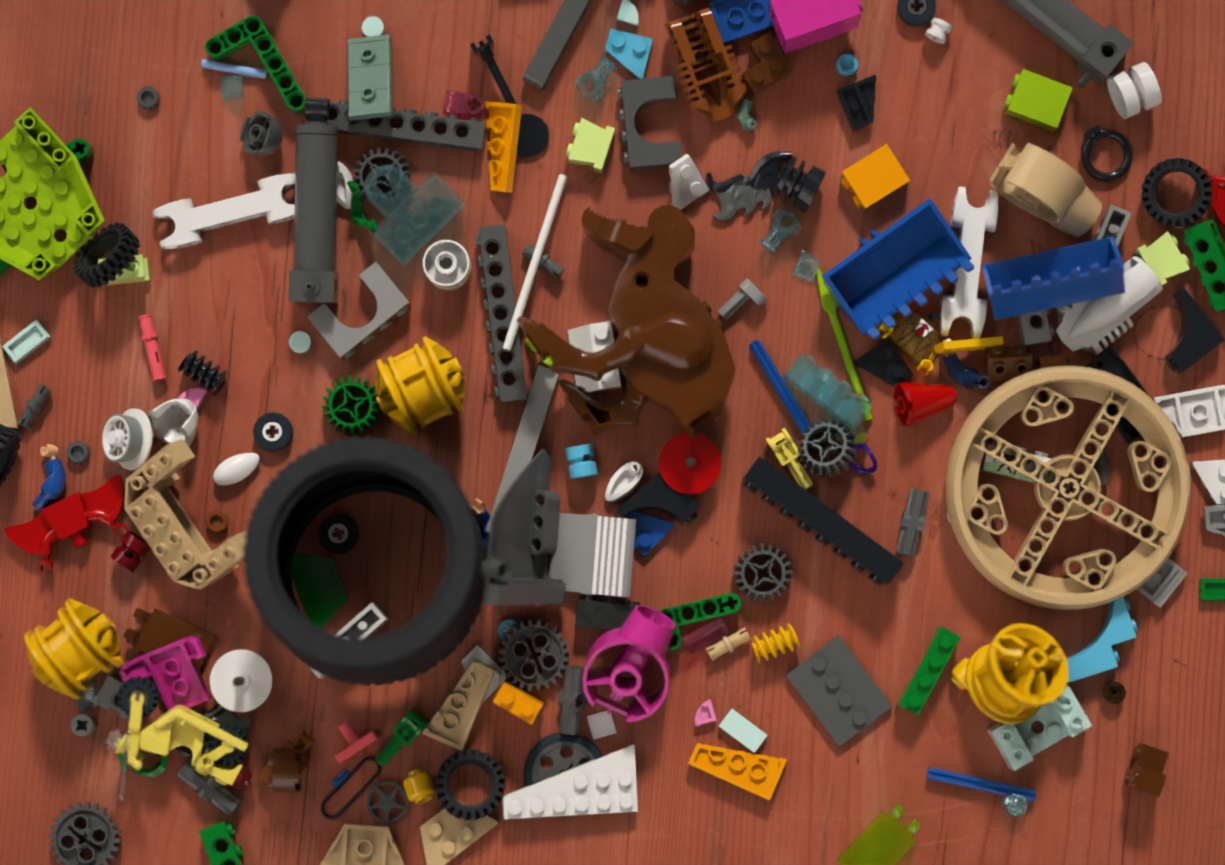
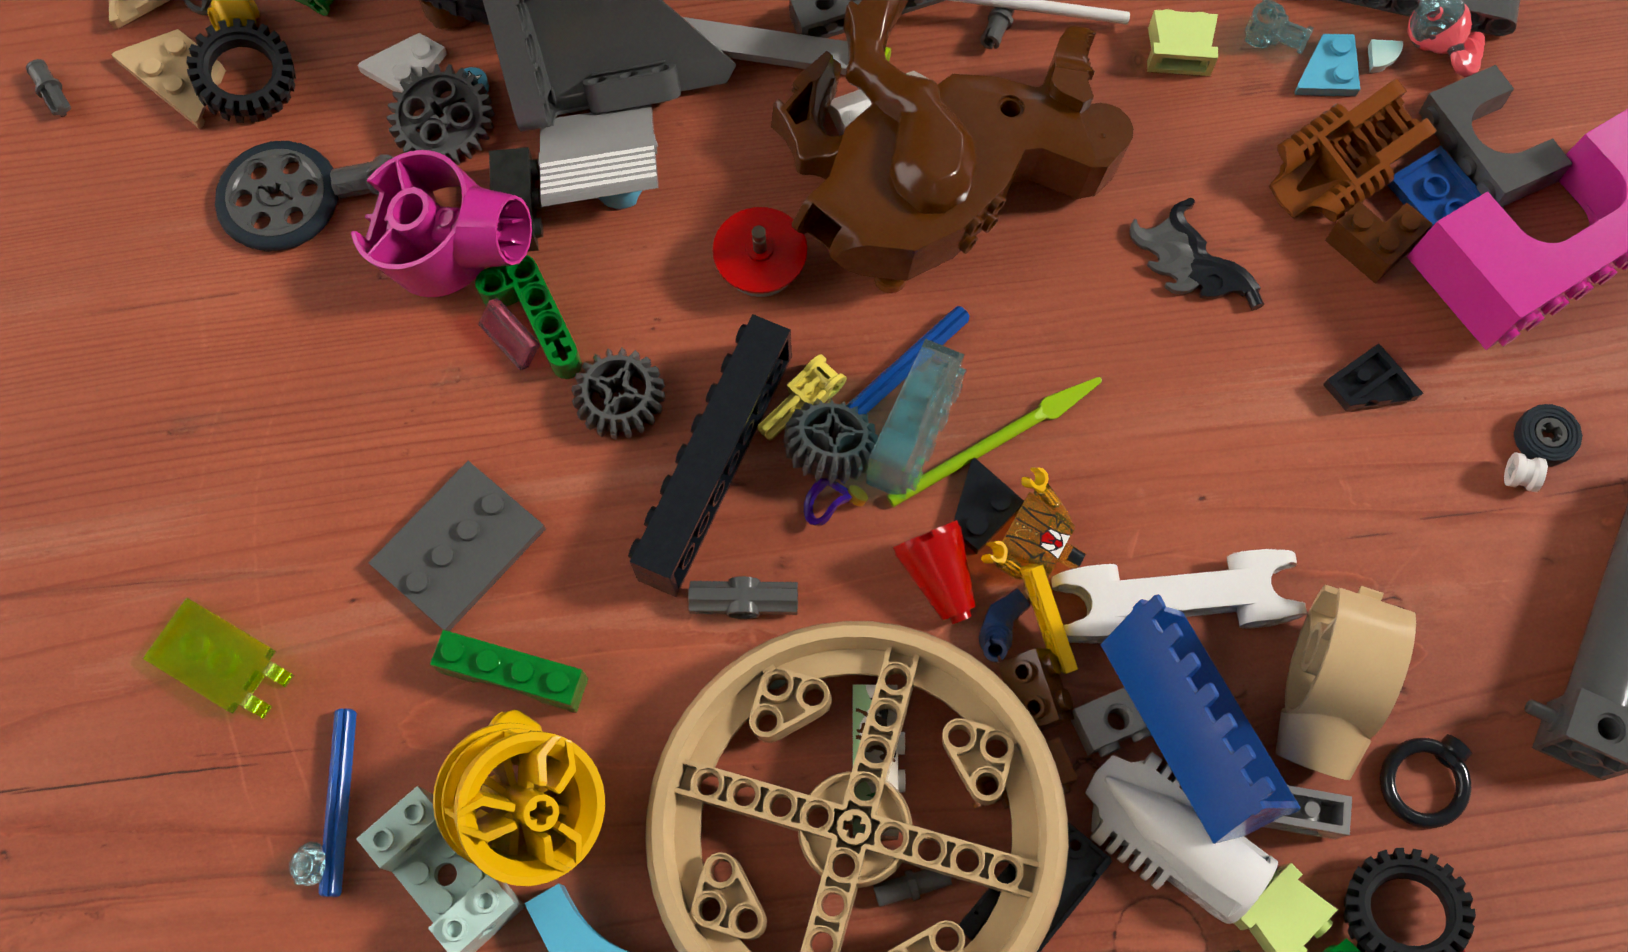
camera: 75 degrees right, 15 degrees down
(458, 713) = (344, 41): tan wing -> none
(518, 702) = (362, 98): light orange brick -> none
(581, 461) = (720, 122): medium azure wheel -> none
(590, 788) = (255, 225): white wing -> none
(601, 724) = (354, 222): white sticker -> none
(624, 481) = (714, 181): white arm -> none
(635, 96) = (1268, 82): dark grey arch -> none
(648, 531) = (649, 223): blue wing -> none
(661, 497) = (700, 220): black arch -> none
(685, 182) = (1169, 167): white wing -> none
(705, 714) = (392, 362): bright pink tile -> none
(728, 644) = (502, 369): tan pin -> none
(743, 730) = (374, 419): light aqua tile -> none
(744, 116) = (1292, 231): sand green arm -> none
(745, 770) = (313, 429): light orange wing -> none
(747, 291) = (1036, 286): light grey piece -> none
(775, 642) = (512, 430): yellow piece -> none
(780, 231) = (1139, 310): clear light blue connector -> none
(798, 183) = (1221, 314): black wheel -> none
(806, 266) = (1098, 360): clear light blue slope -> none
(846, 64) = (1420, 356): medium azure tile -> none
(874, 177) = (1266, 423): light orange panel -> none
(896, 269) = (1140, 471): blue piece -> none
(1037, 100) = (1475, 648): lime brick -> none
(1134, 90) = (1561, 809): white wheel -> none

